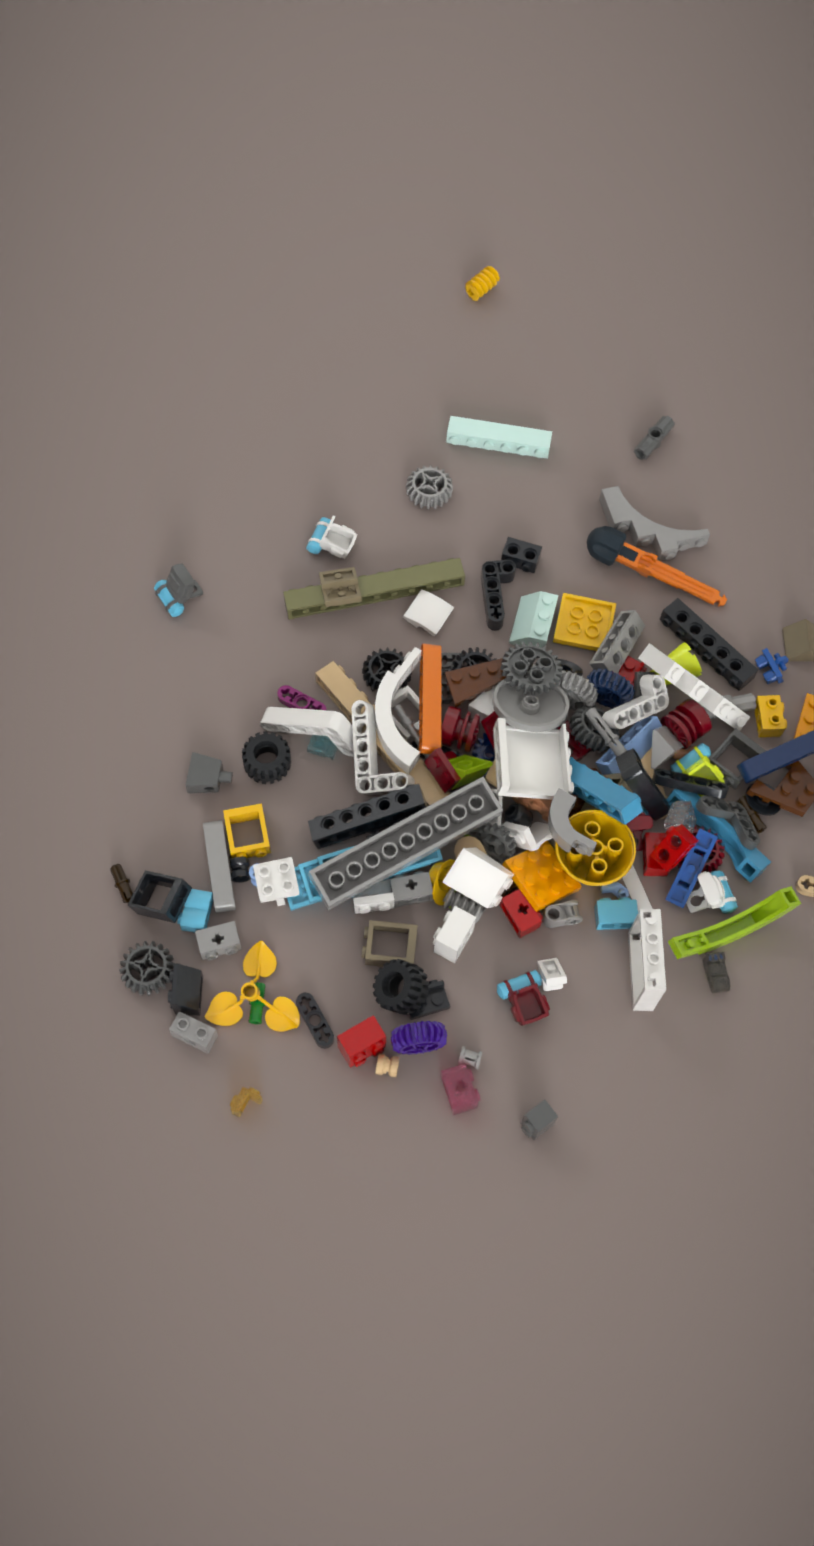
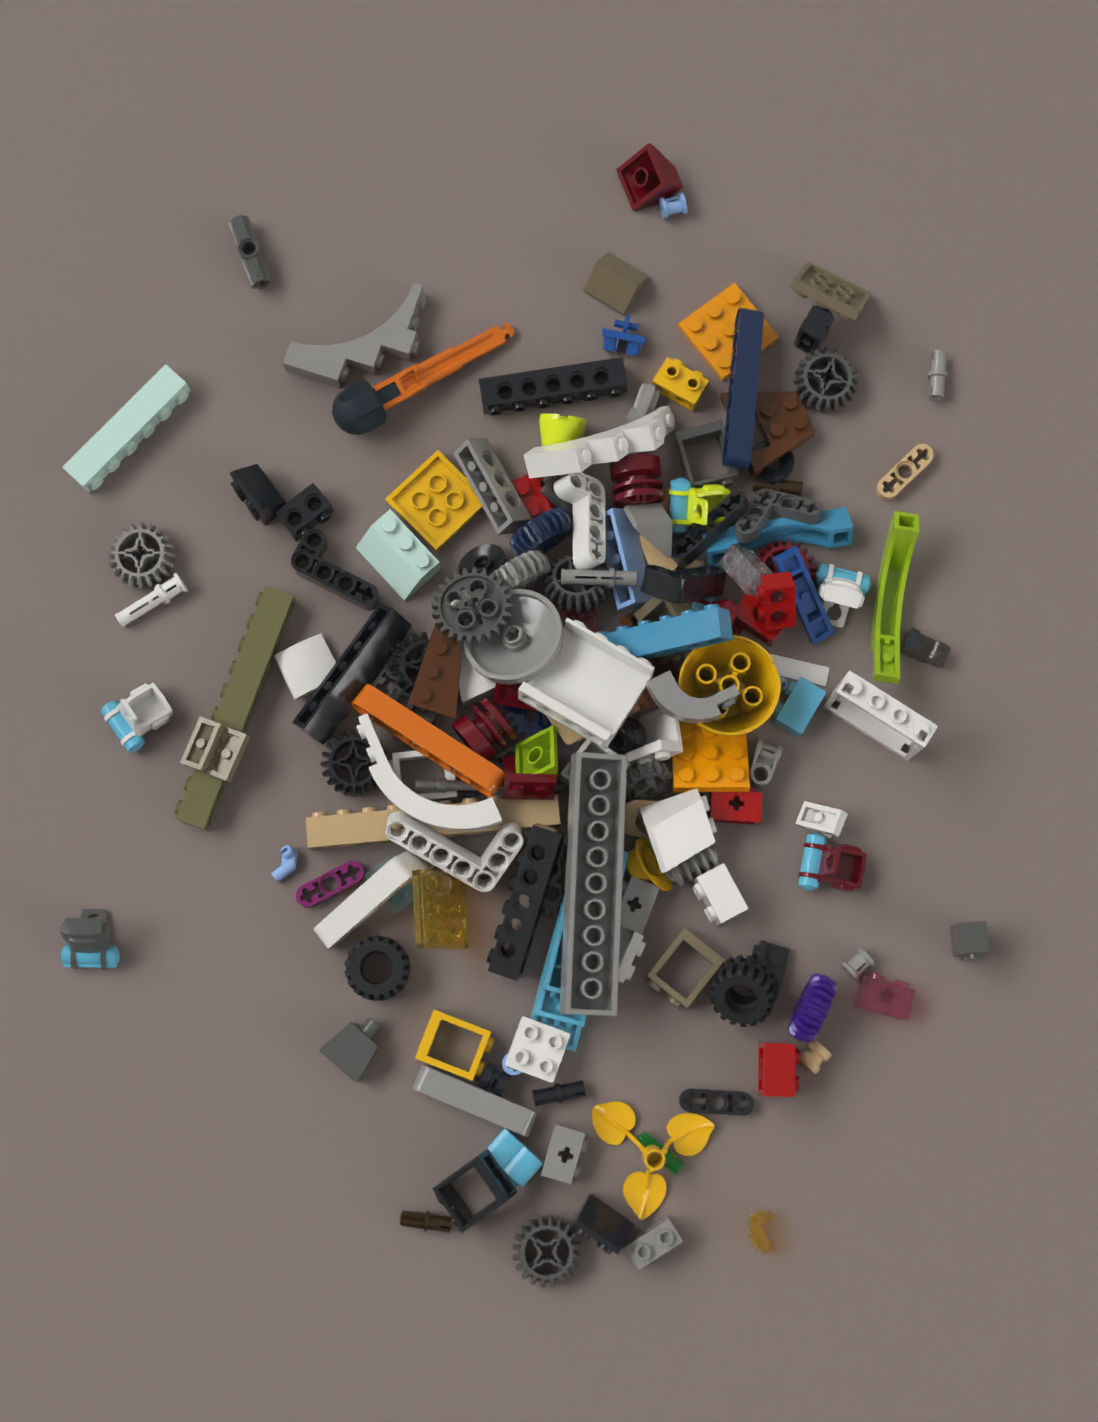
camera: 55 degrees left, 15 degrees up
(256, 915) = (558, 1093): none -> black pin
(298, 673) = (288, 863): none -> light blue arm
(326, 767) = (439, 910): none -> clear yellow plate
(414, 510) = (125, 616): none -> white pin
(447, 635) = (351, 673): none -> black brick
(513, 521) = (261, 495): none -> black slope

